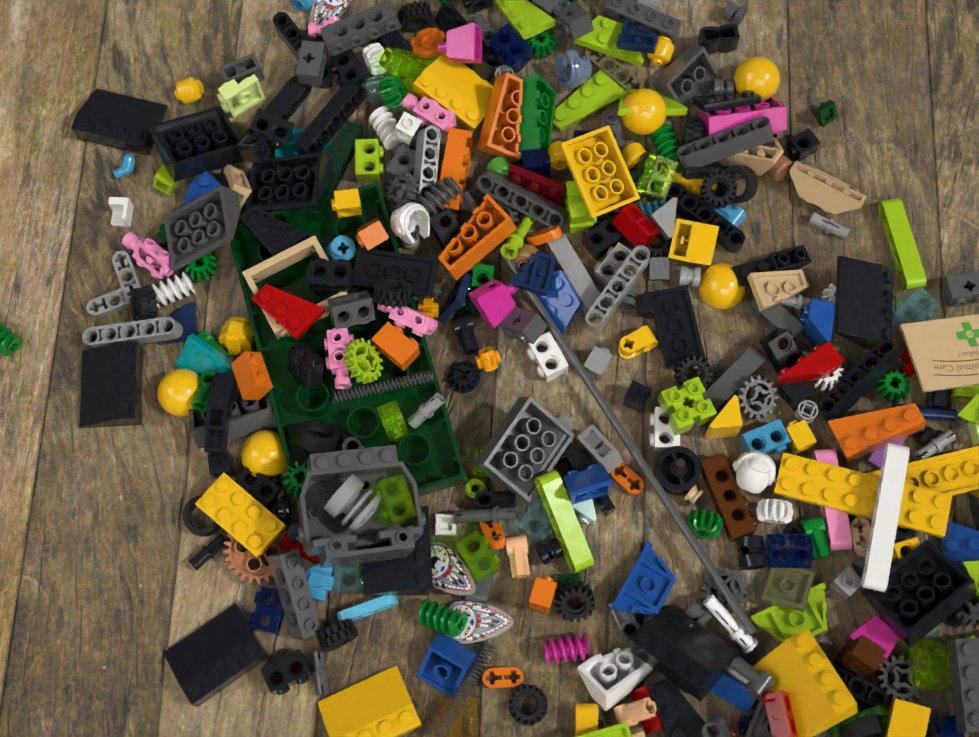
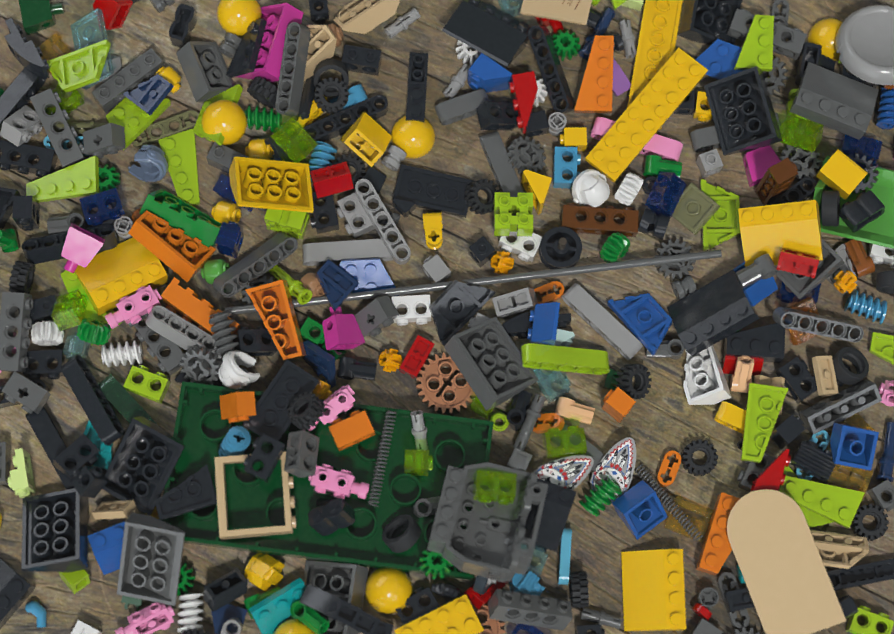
camera: 75 degrees left, 5 degrees up
(204, 307) = (225, 589): none -> black brick
(251, 375) = (318, 569): orange brick -> none
(288, 310) = (277, 509): red wing -> none
(347, 203) = (193, 417): yellow brick -> none
(352, 503) = (487, 521): light grey wheel -> none
(363, 361) = (355, 463): lime gear -> none
(406, 128) = (140, 333): white brick -> none
(426, 42) = (52, 279): orange tile -> none
(463, 386) = (389, 396): black gear -> none
(494, 404) = (433, 373): none -> nougat gear
(502, 380) = (416, 356): none -> red hinge
(541, 185) = (250, 244): dark red wing -> none
(544, 235) = (299, 261): orange beam -> none
(549, 551) = (581, 384): black wheel -> none
(566, 648) = (668, 405): dark pink piece -> none
(570, 396) = (457, 307): none -> black wing
(623, 545) = (602, 321): none -> light grey beam
(635, 421) = (502, 262): none -> light orange gear
(665, 218) = (336, 151): light grey slope -> none
(693, 495) = (586, 246): tan bush -> none
(736, 630) = (711, 265): white pin -> none
(771, 205) = (362, 59): none -> black brick
(776, 286) = (439, 92): tan wing -> none
(858, 537) = (679, 128): tan beam -> none
(885, 517) = (675, 105): white beam -> none

